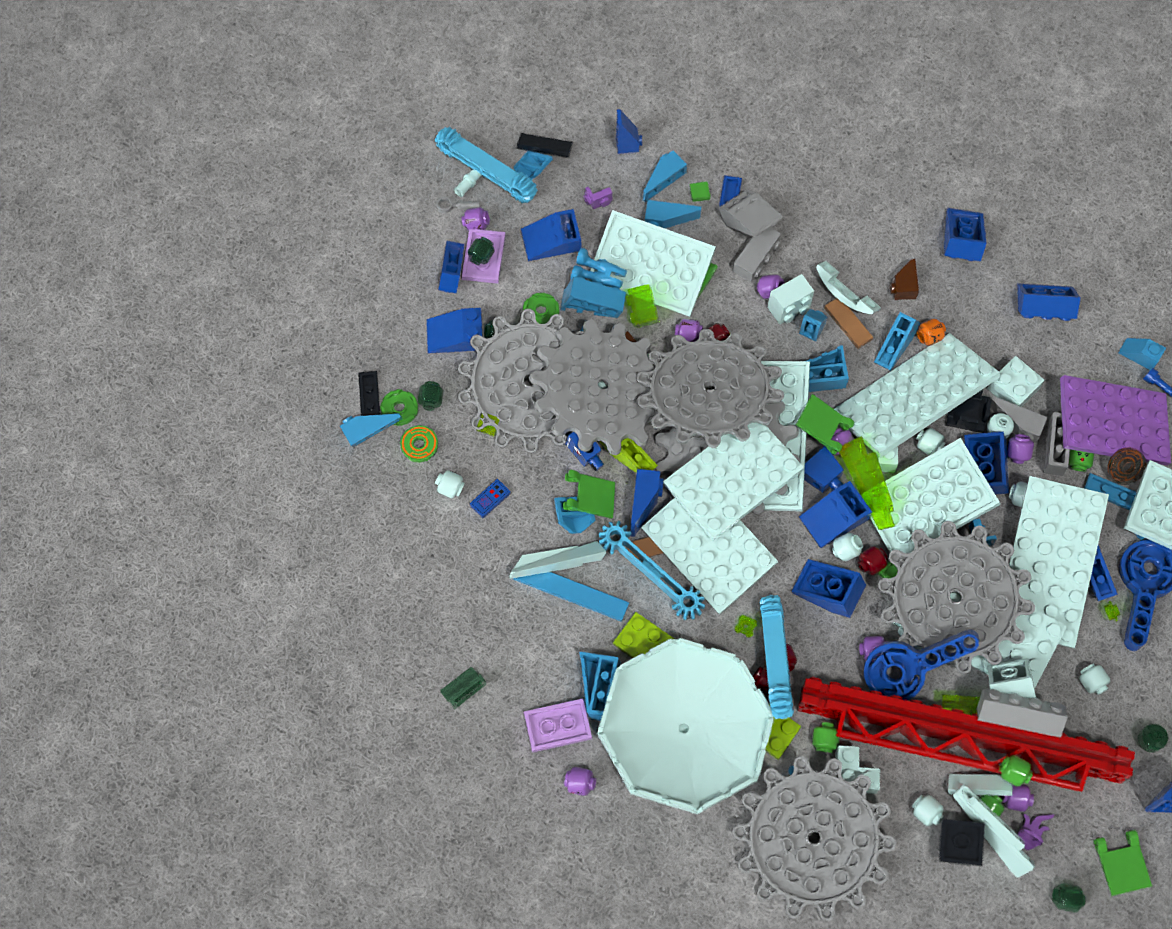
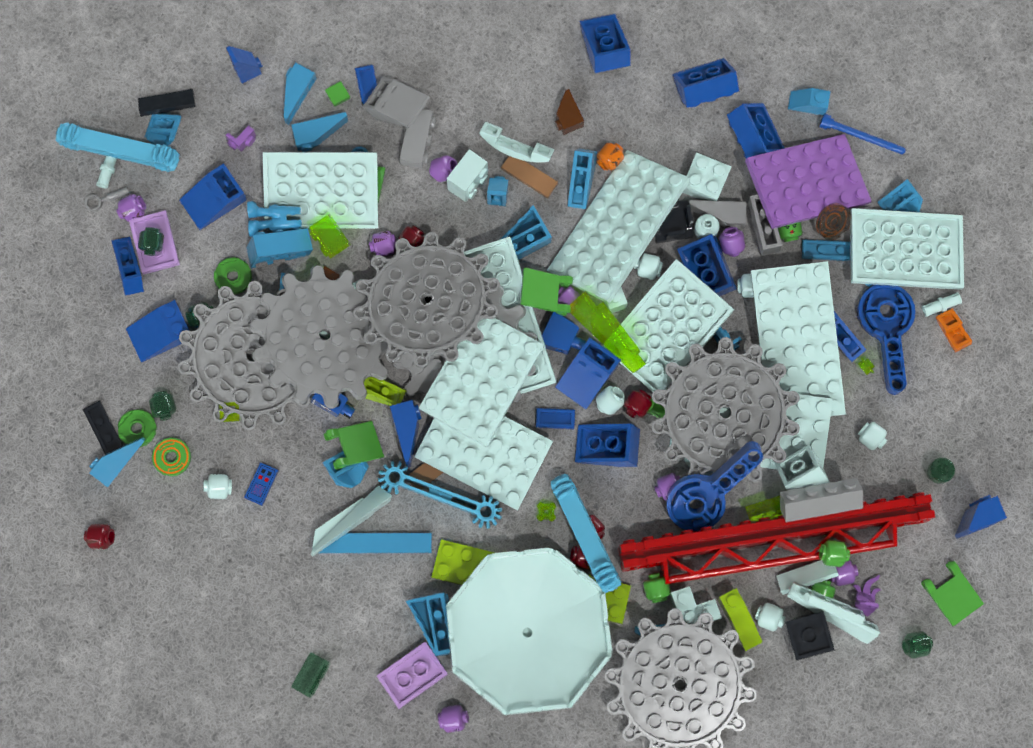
camera: 25 degrees left, 10 degrees up
(324, 486) = (99, 536): none -> dark red head
(788, 545) = (555, 418): none -> blue tile
(897, 797) = (740, 619): none -> lime slope
(1078, 355) = (754, 129): none -> blue slope

